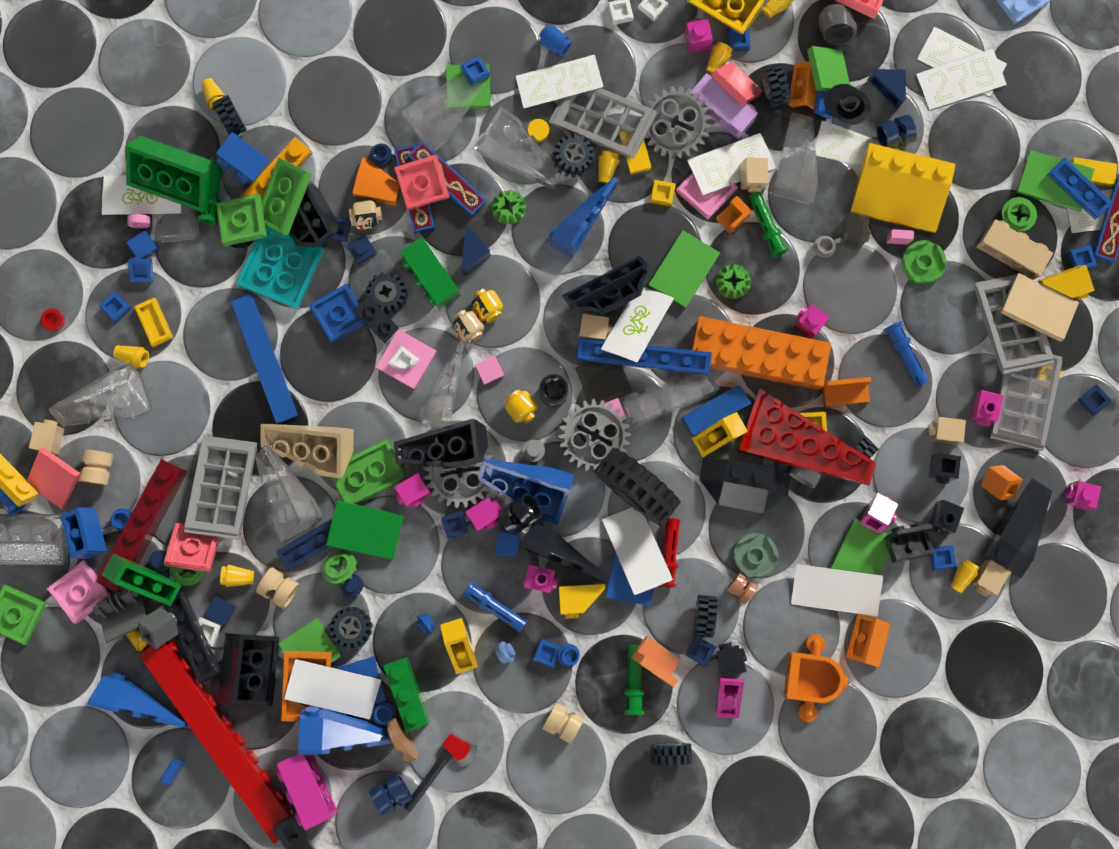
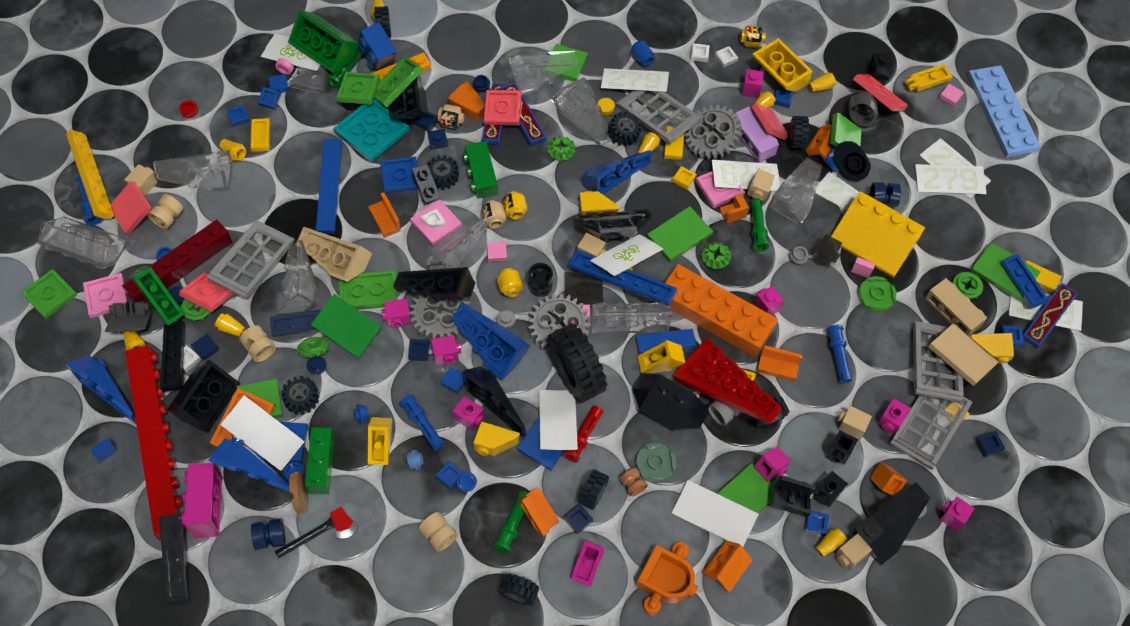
camera: 20 degrees right, 20 degrees down
(83, 533) = (131, 251): blue brick -> none
(158, 627) = (150, 334): dark grey brick -> none
(346, 376) = (385, 217): none -> orange panel
(474, 70) = (574, 52): blue tile -> none
(474, 252) = (520, 168): dark blue slope -> none
(520, 513) = (474, 355): black wheel -> none
(578, 270) = (596, 203): none -> yellow slope
(730, 659) = (602, 533): black brick -> none
(890, 84) = (891, 161): dark blue slope -> none

